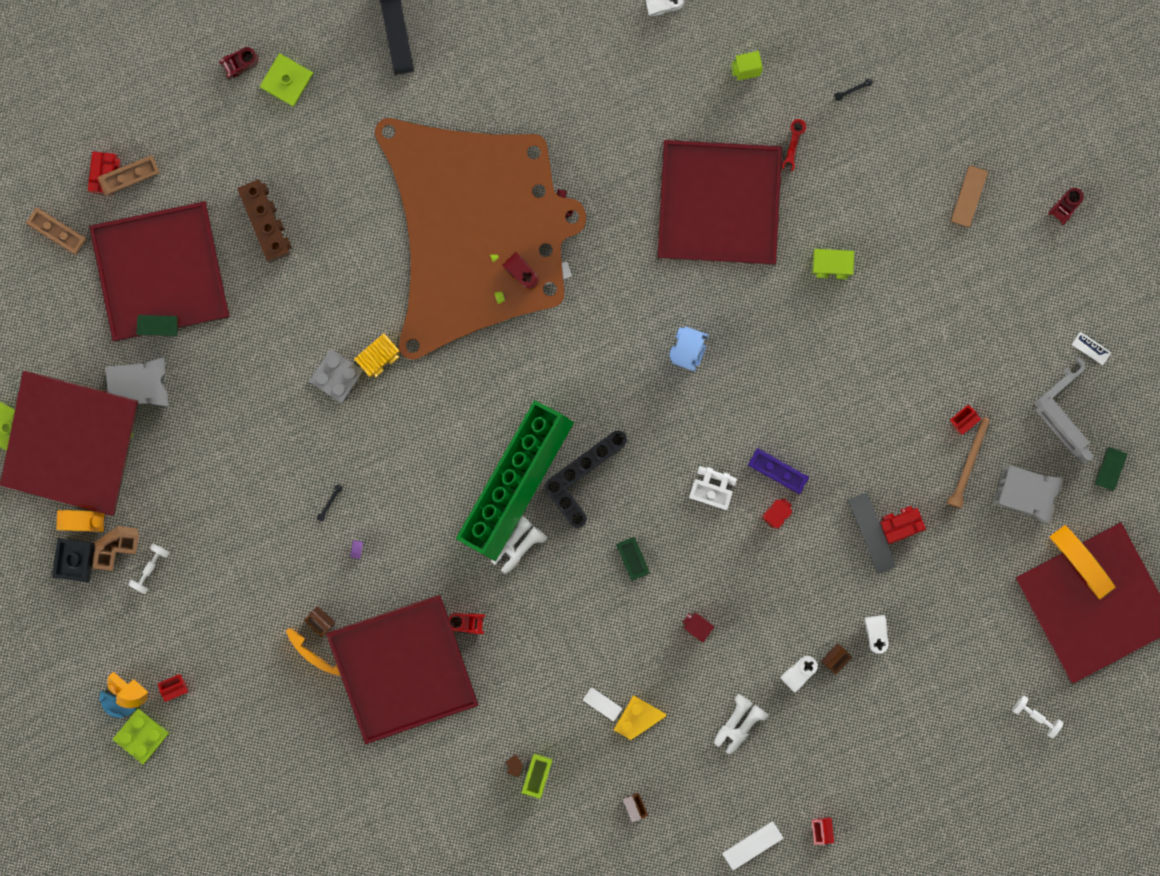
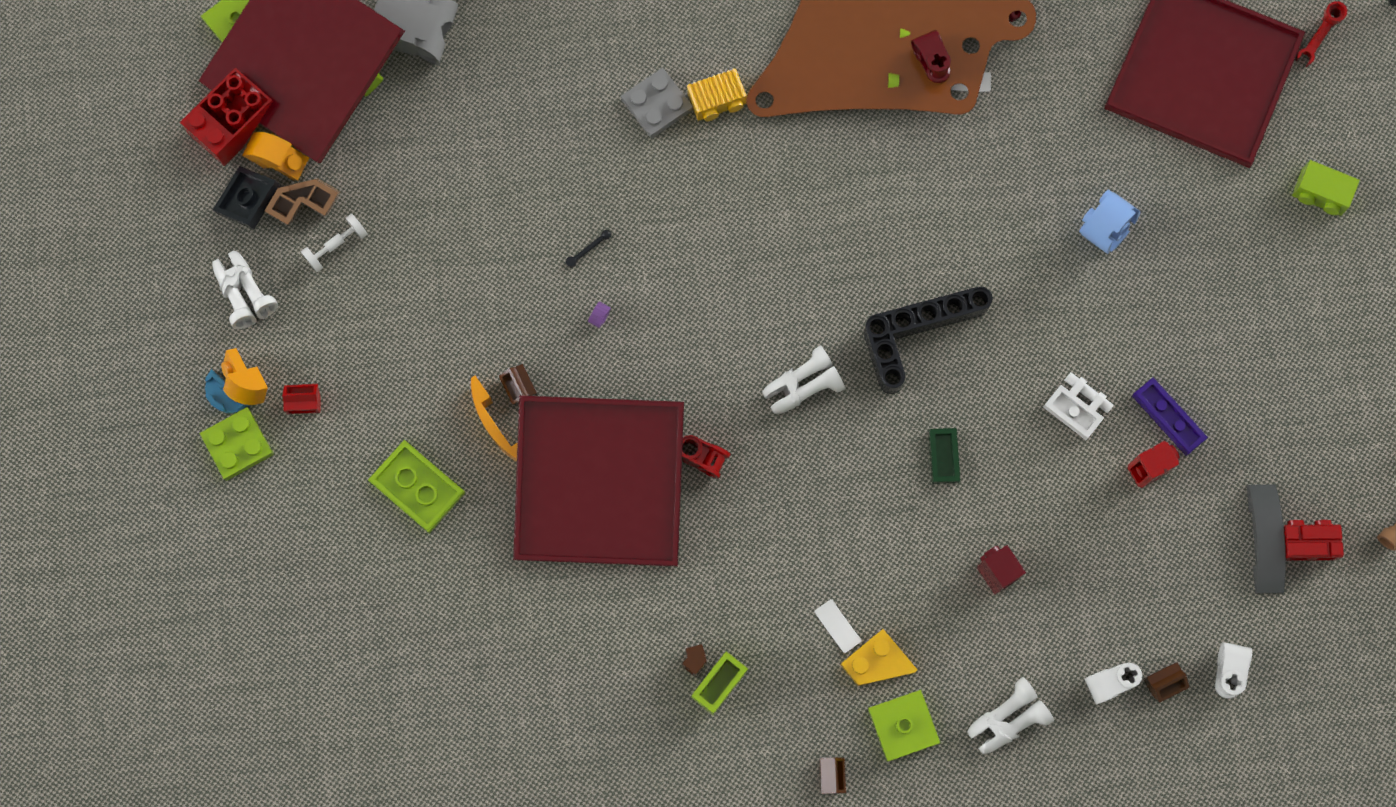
camera: 20 degrees right, 10 degrees down
(34, 505) = (227, 116): none -> red slope
(88, 626) = (231, 283): none -> white piece
(277, 718) = (416, 486): none -> lime tile
(515, 480) = (831, 300): green brick -> none
(670, 755) = (904, 725): none -> lime plate

